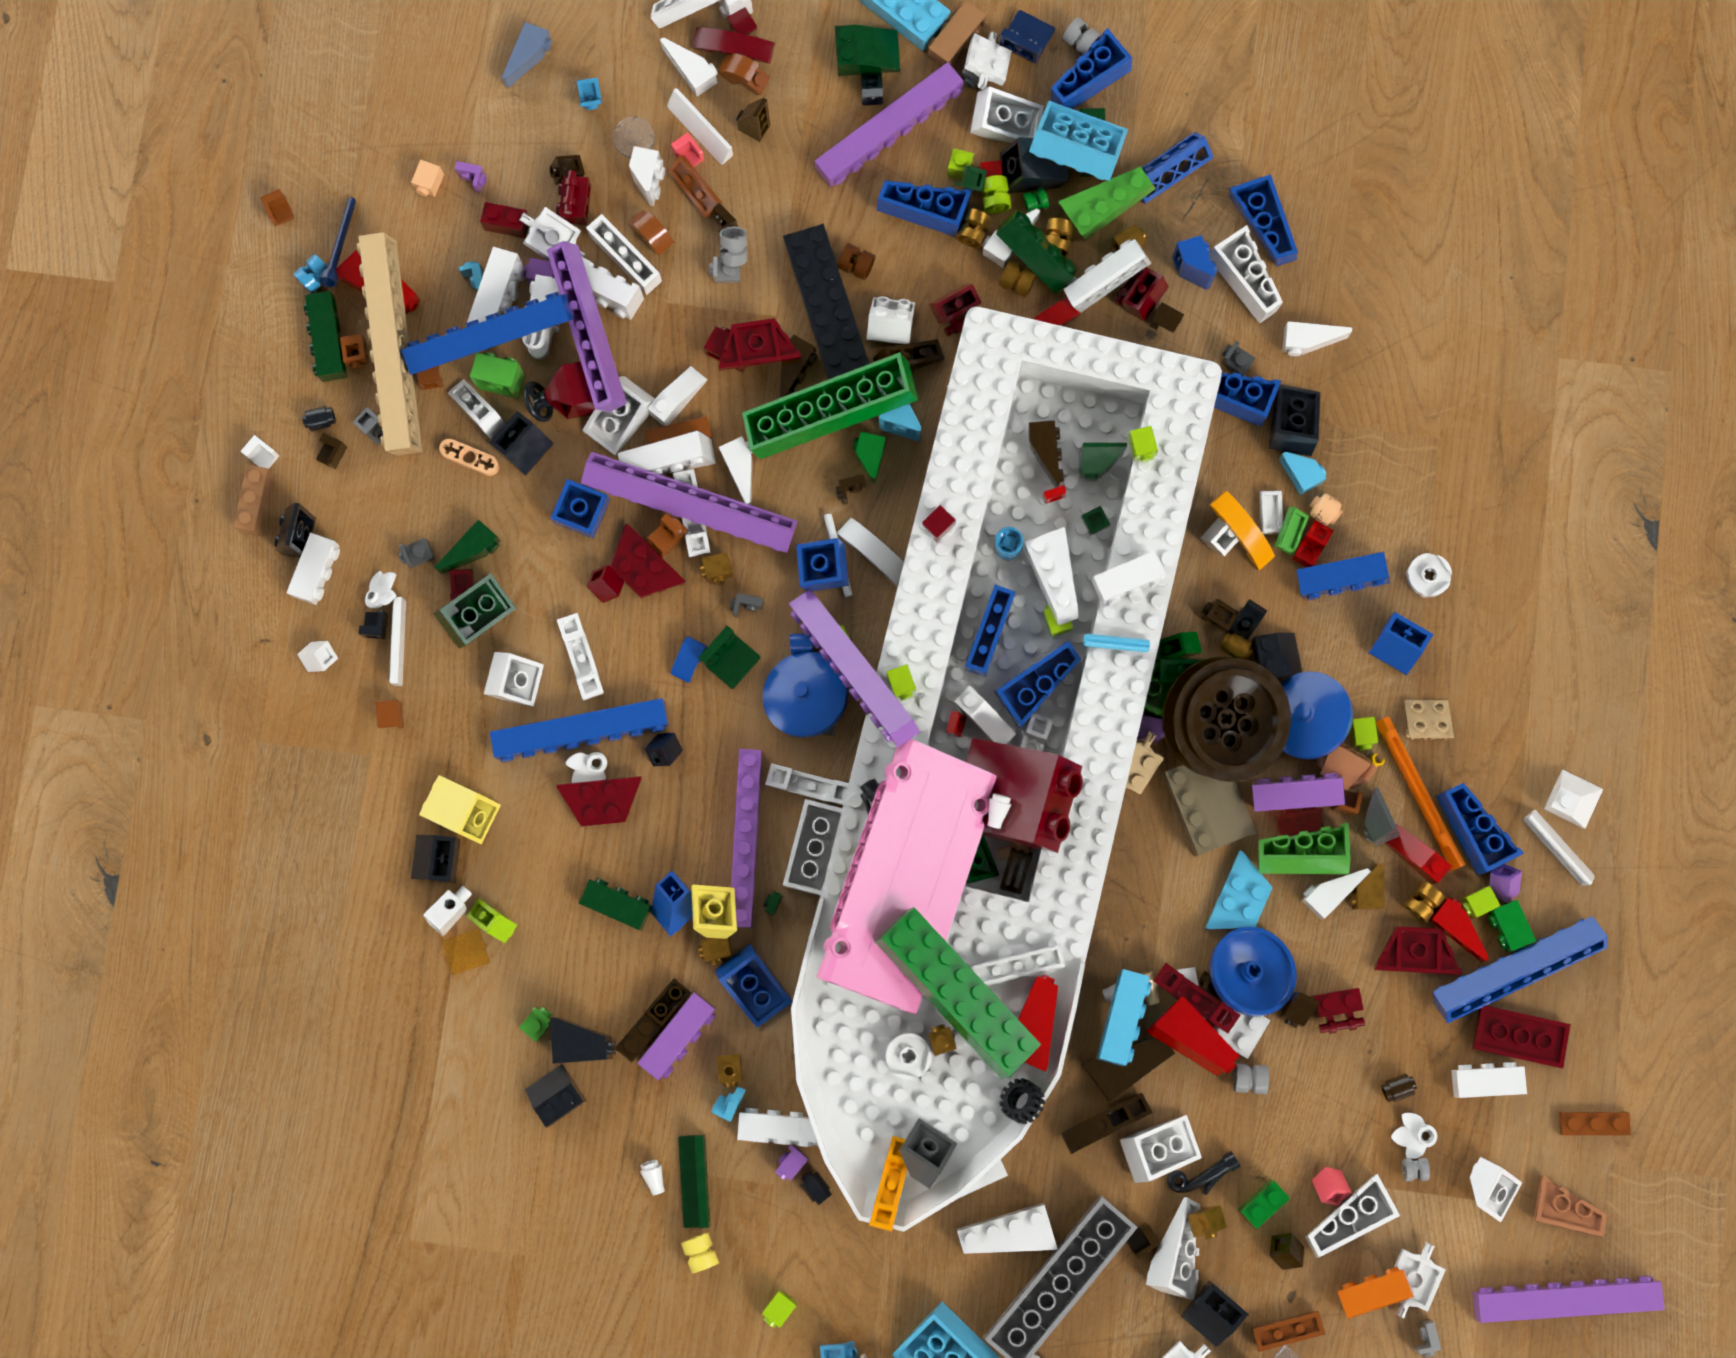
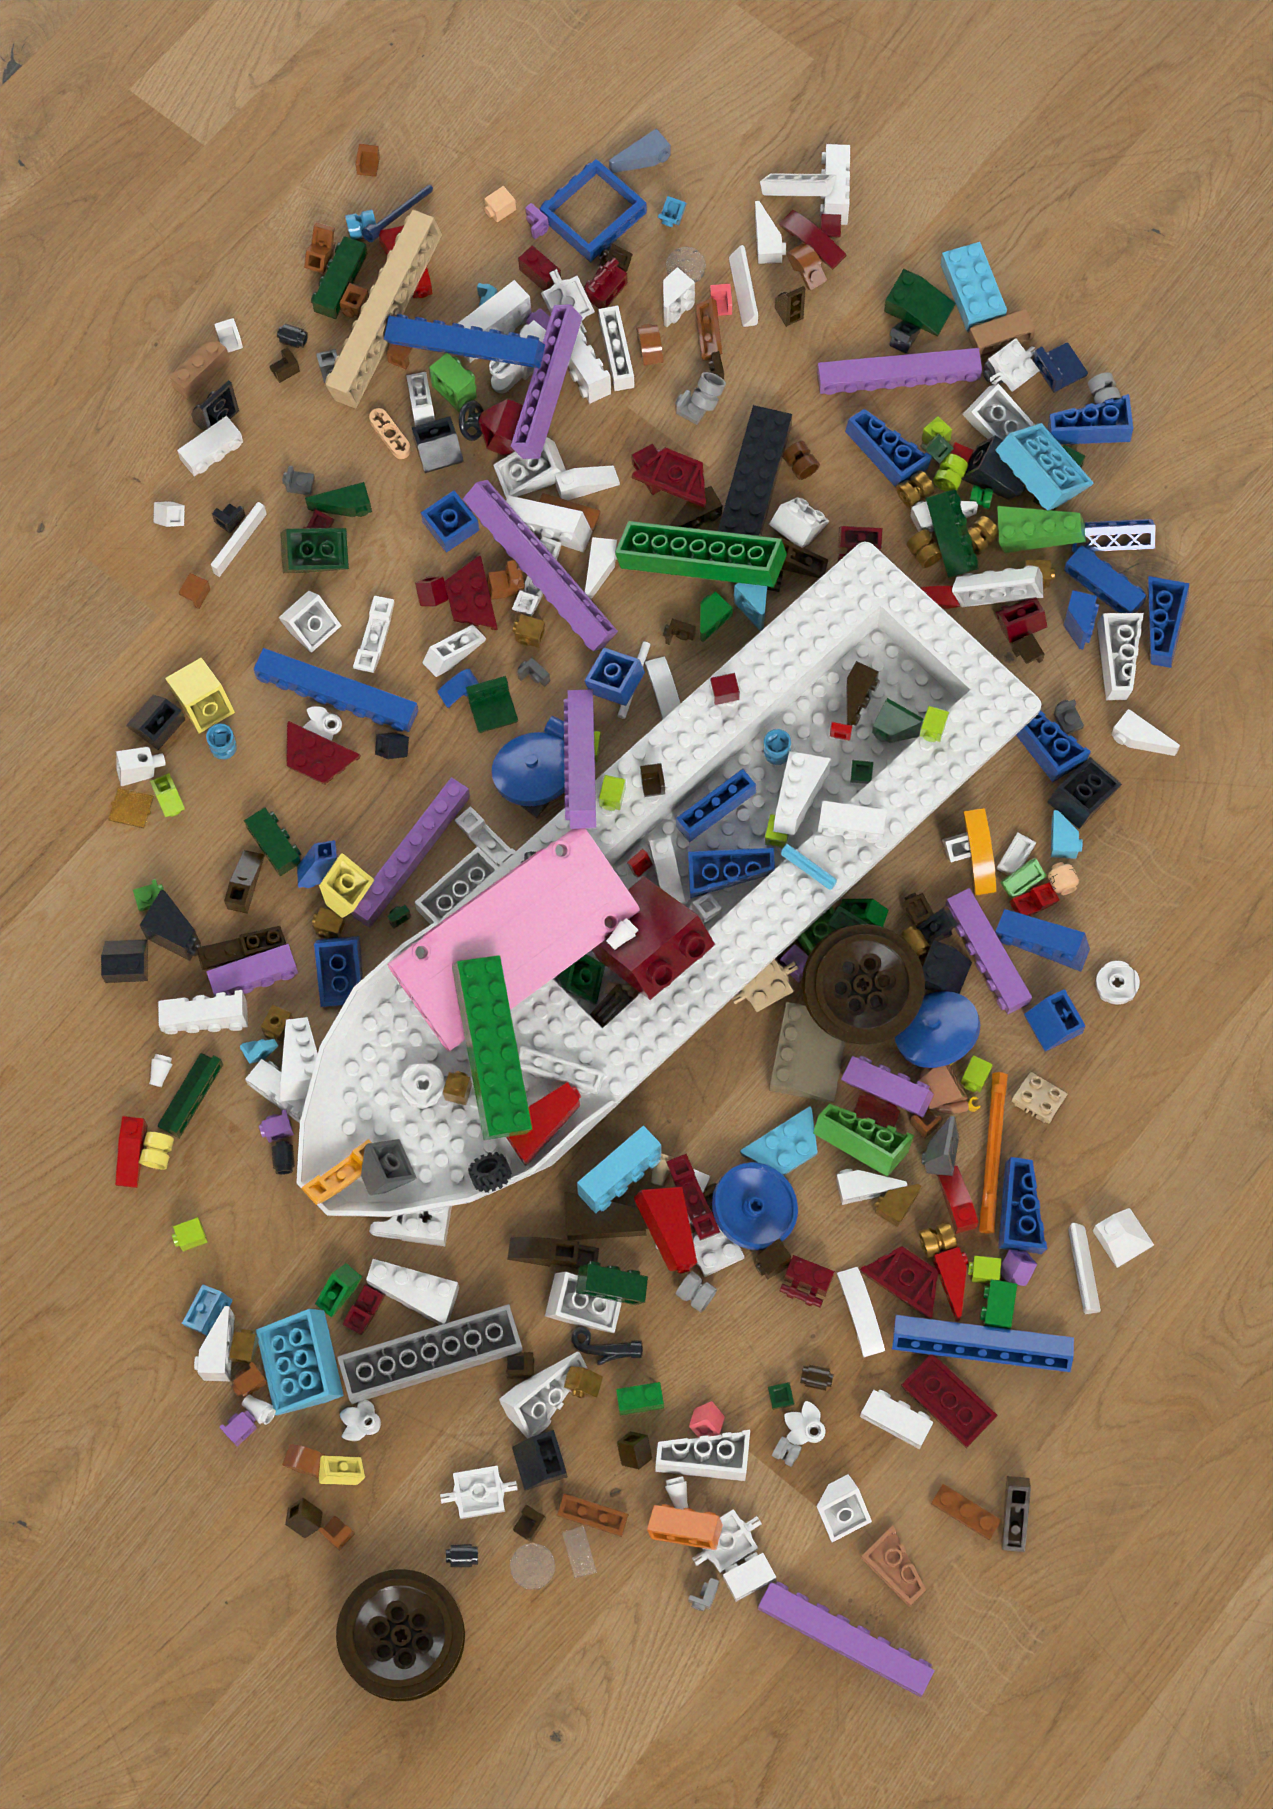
camera: 30 degrees right, 10 degrees down
(290, 319) = (321, 249): none -> dark orange brick
(380, 590) = (251, 492): white plate -> none
(508, 841) = (221, 741): none -> dark azure wheel
(541, 171) = (612, 232): none -> blue window
(614, 956) = (244, 882): none -> dark brown slope
(658, 1102) = (204, 1013): none -> white wedge
(660, 627) = (450, 651): none -> white slope
(676, 1267) = (129, 1150): none -> red slope
(777, 1095) = (298, 1059): none -> white wedge
(929, 648) = (652, 780): none -> dark brown panel
(942, 1274) = (338, 1289): none -> green slope
(974, 1277) = (364, 1309): none -> dark red slope
(1177, 1120) = (612, 1283): none -> dark green brick
(1192, 215) = (1104, 581): none -> blue brick
(1304, 616) = (988, 952): none -> medium lavender brick
(1345, 1263) = (677, 1492): none -> white cone
(1379, 1123) = (781, 1396): none -> dark green plate
(1397, 1004) = (861, 1311): none -> white slope
(1453, 1299) = (748, 1576): none -> white brick
(1638, 1098) = (1016, 1513): none -> dark brown slope

